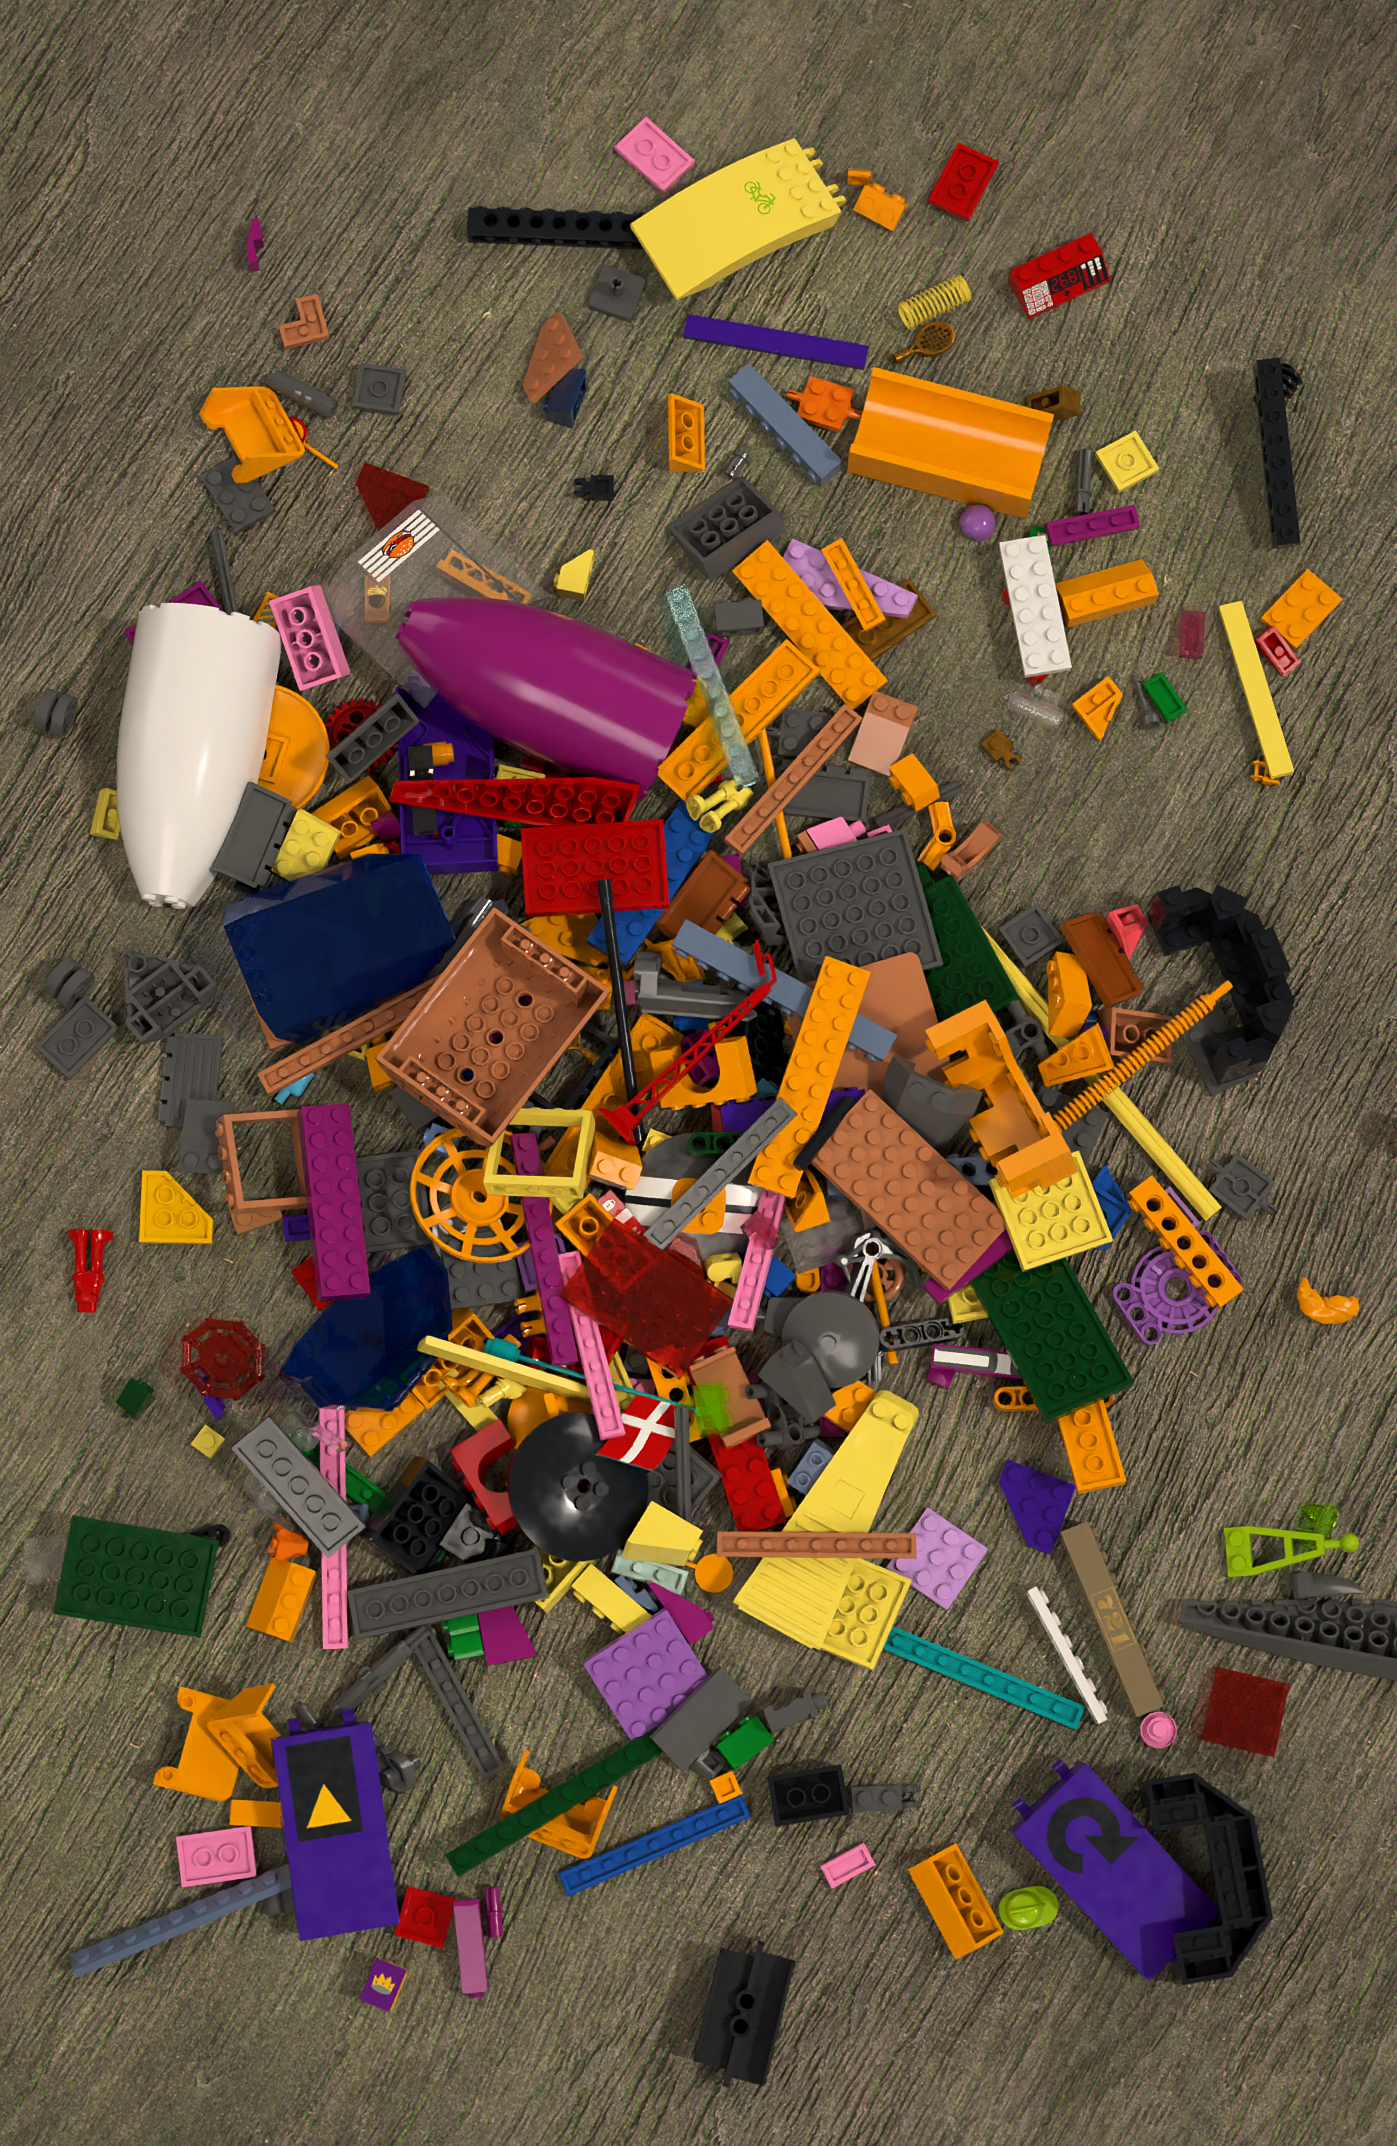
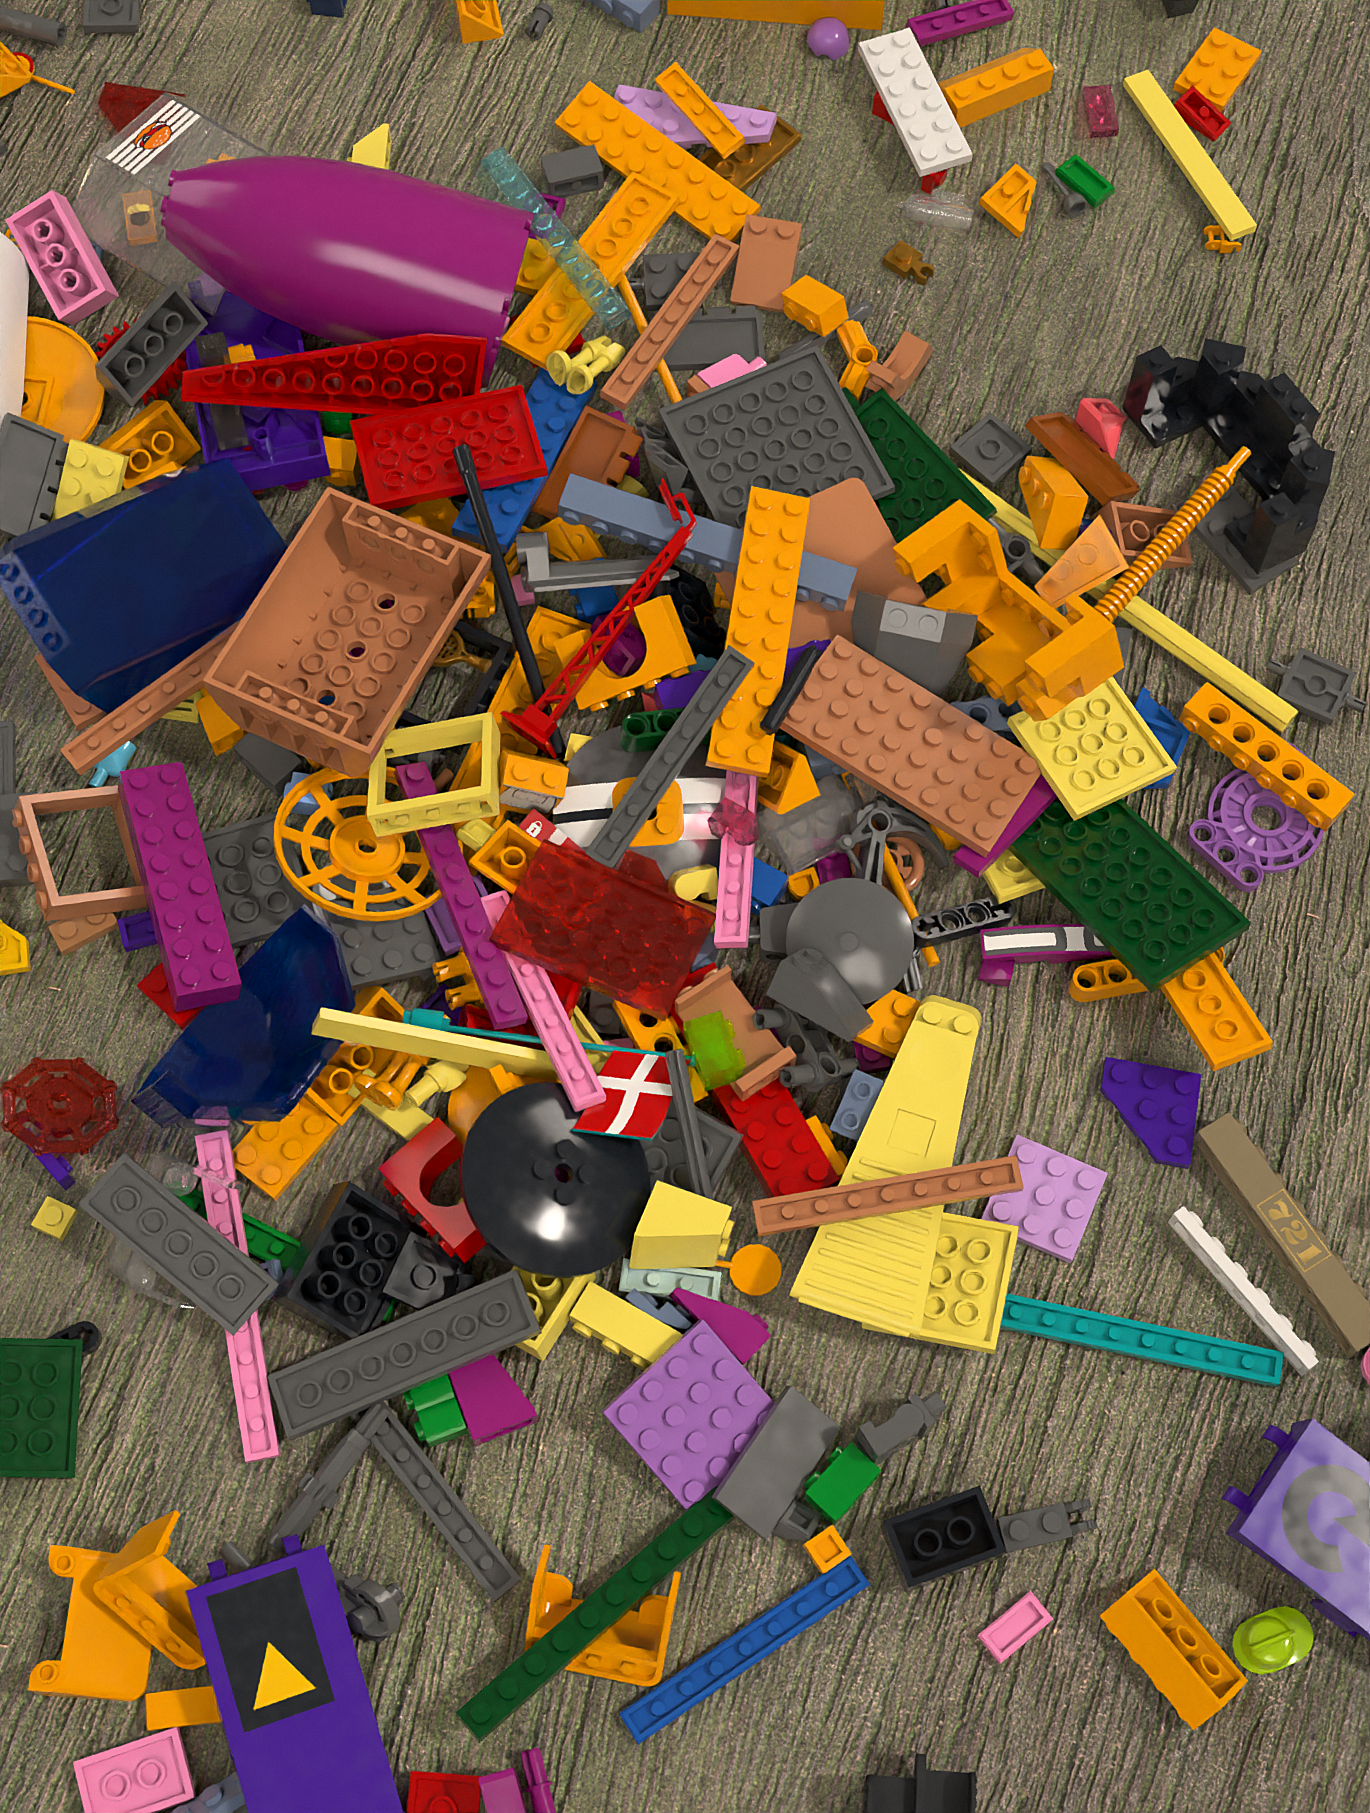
camera: 10 degrees left, 10 degrees down
(282, 1599) = (181, 1406): light orange slope -> none
(287, 1544) = (176, 1328): orange rock -> none
(386, 826) = (187, 451): magenta slope -> none
(600, 487) = (384, 66): black plate -> none
(727, 527) = (540, 84): dark grey slope -> none

